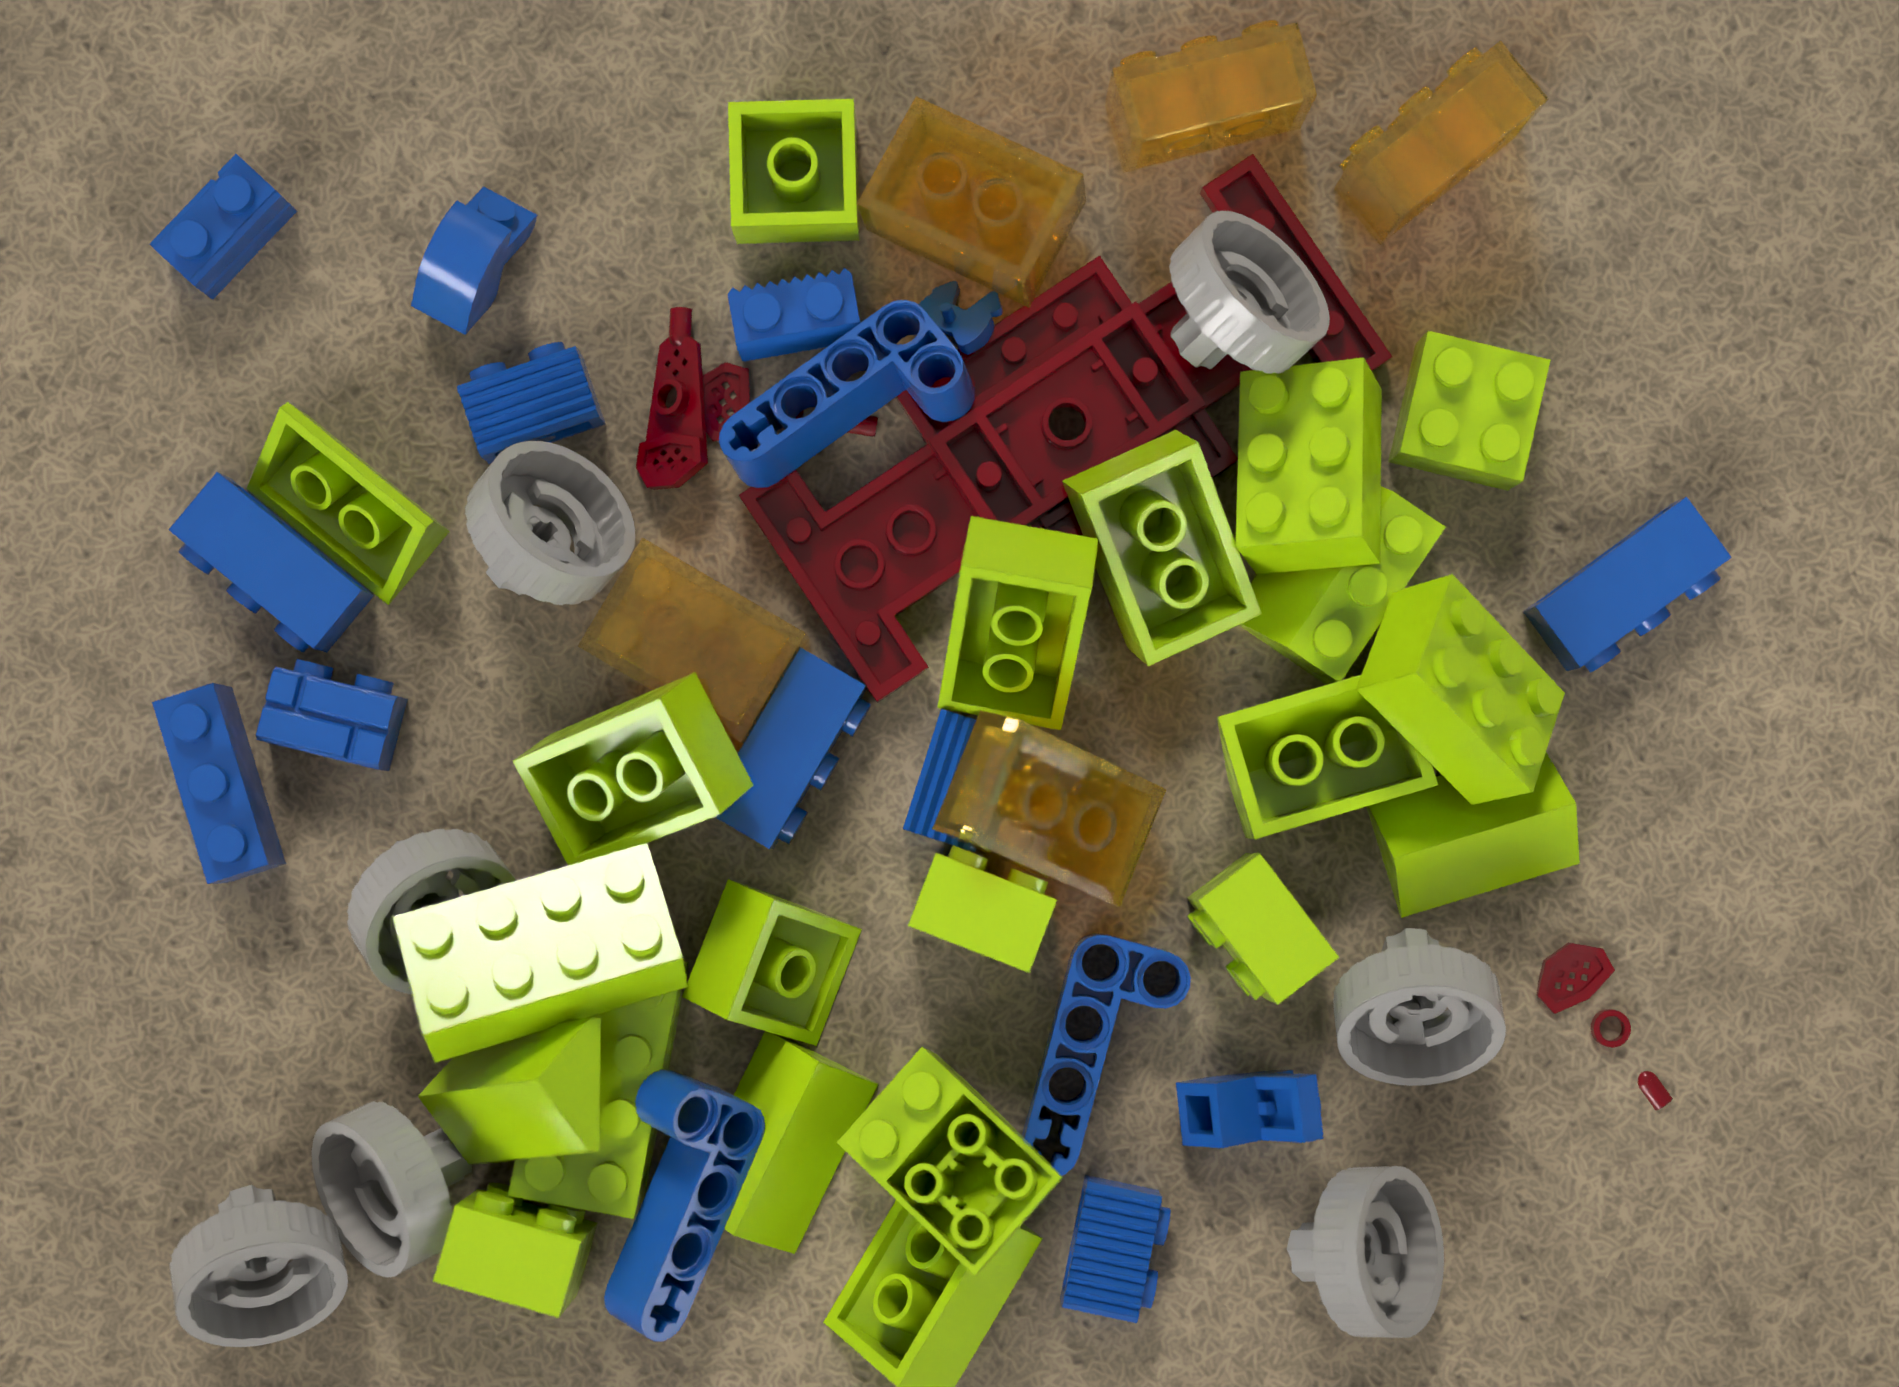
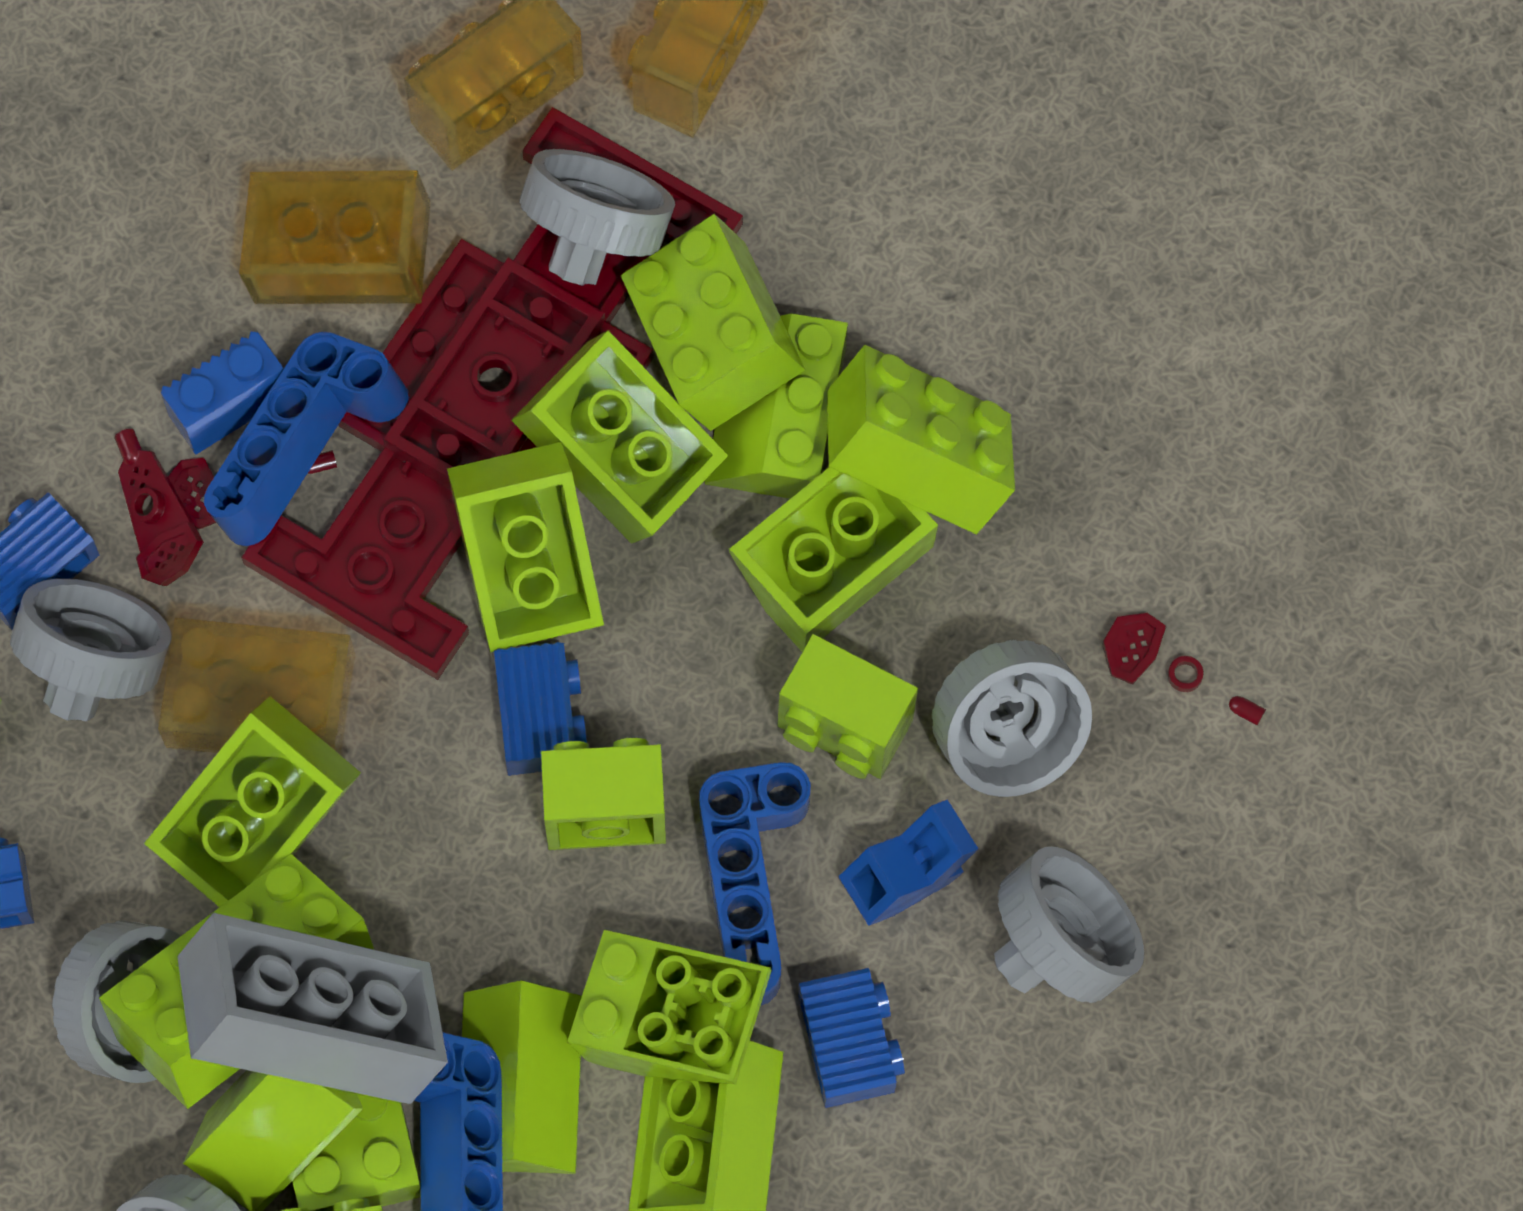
camera: 25 degrees left, 15 degrees down
(579, 1049) = (311, 1009): none -> light grey brick
(771, 963) = (447, 917): lime slope -> none
(793, 171) = (174, 277): lime brick -> none
(793, 747) = (381, 743): blue brick -> none
(968, 327) = (380, 335): blue piece -> none
(1049, 808) = (622, 678): clear yellow brick -> none
(1450, 850) = (986, 581): lime slope -> none
(1469, 411) = (826, 230): lime brick -> none
(1629, 587) = (1024, 313): blue brick -> none

